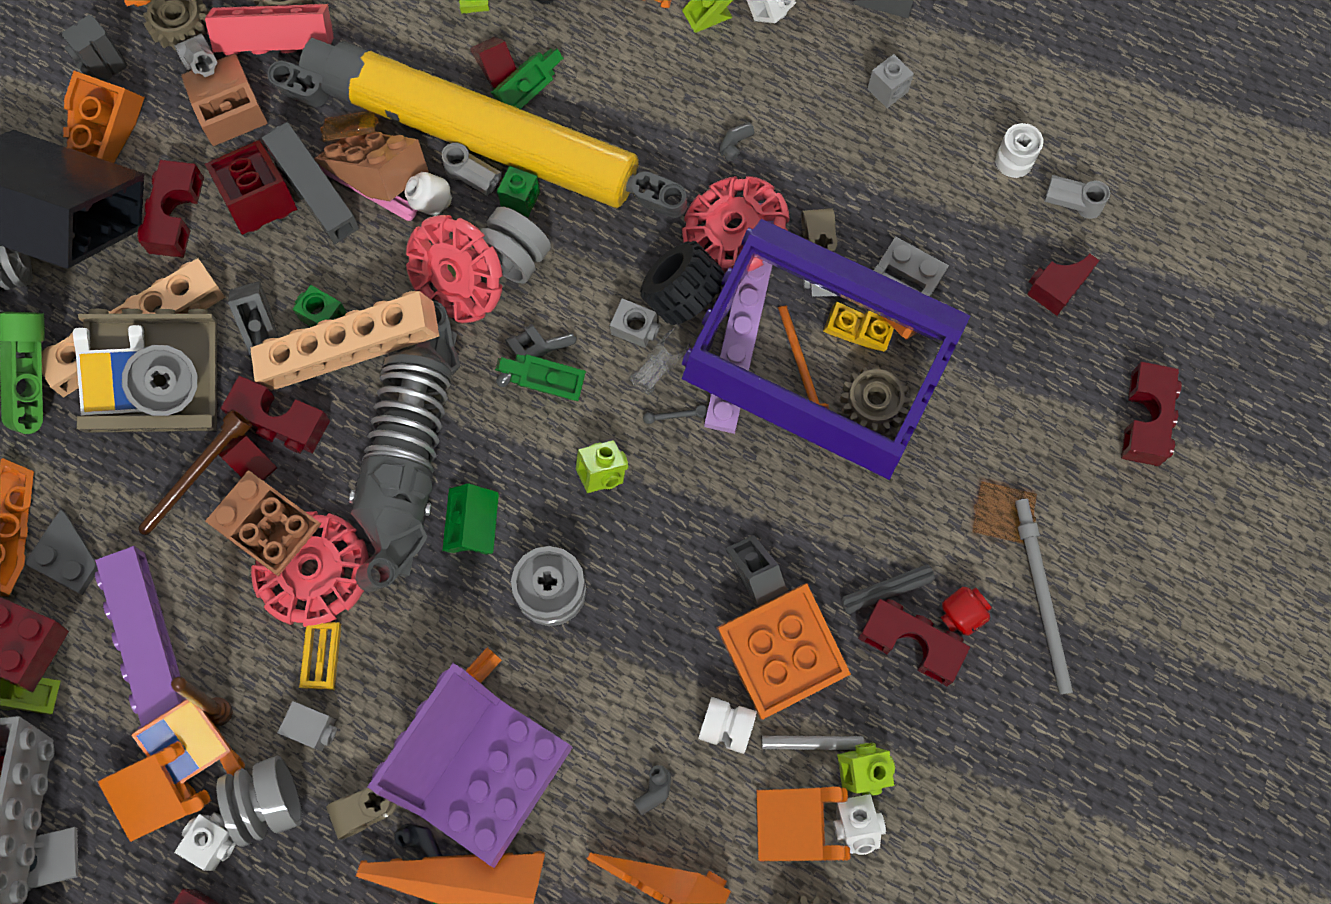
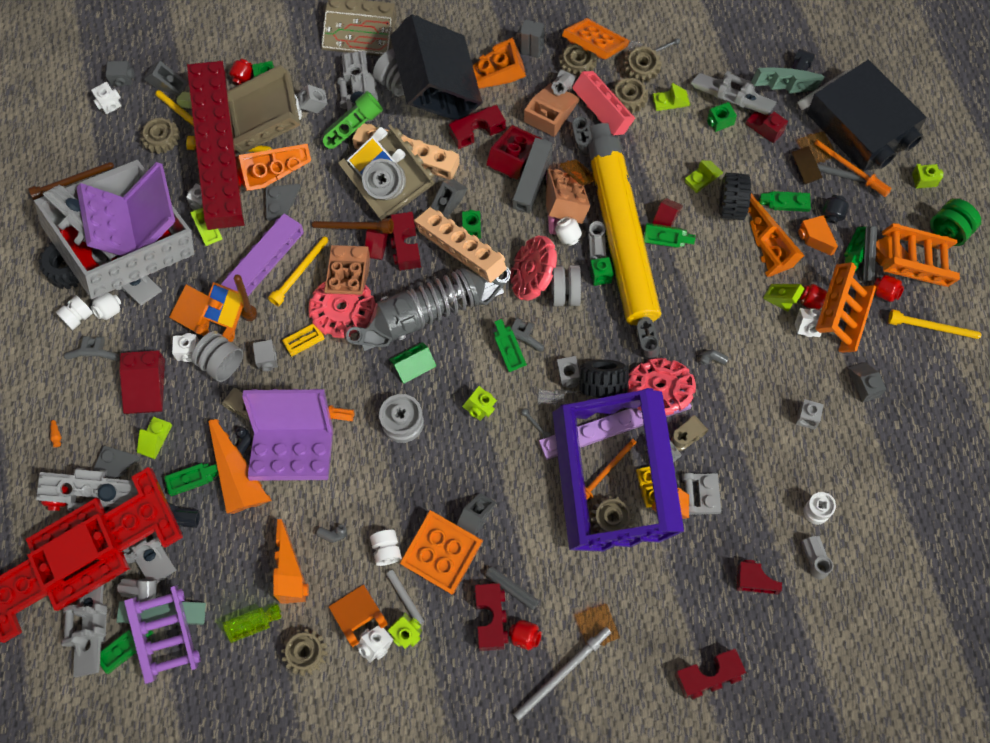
camera: 60 degrees right, 5 degrees down
(223, 652) = (277, 297): none -> yellow piece

